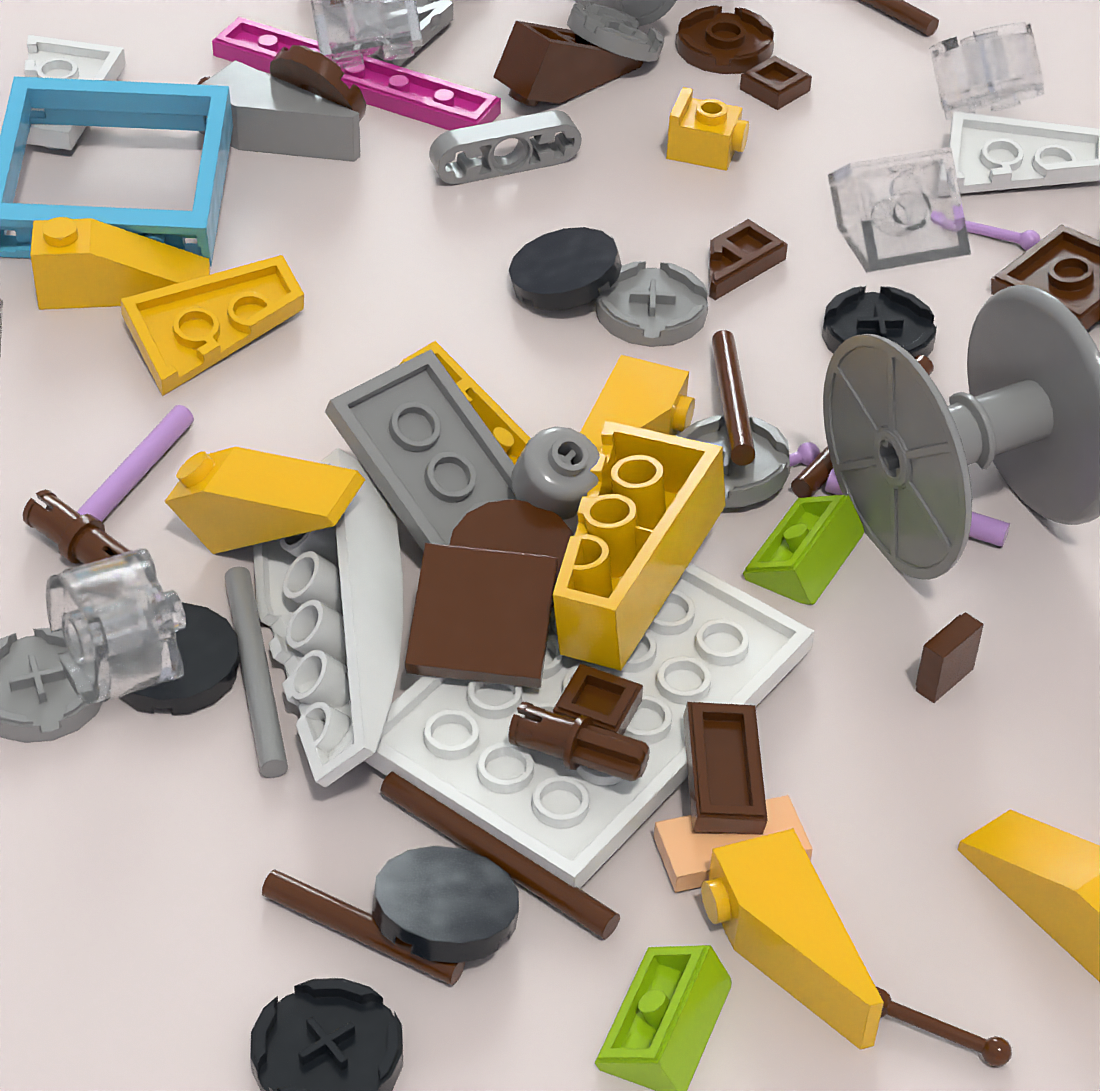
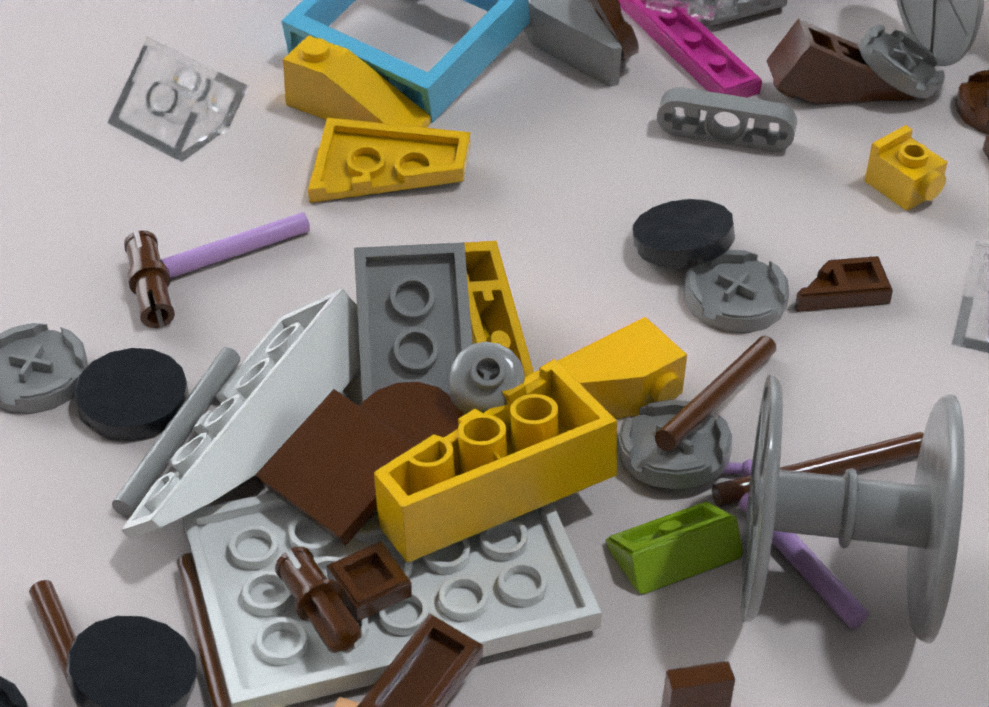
camera: 35 degrees right, 0 degrees up
(116, 626) = (78, 346): clear brick -> none
(258, 496) = (263, 297): yellow slope -> none
(886, 314) = (903, 388): black tile -> none

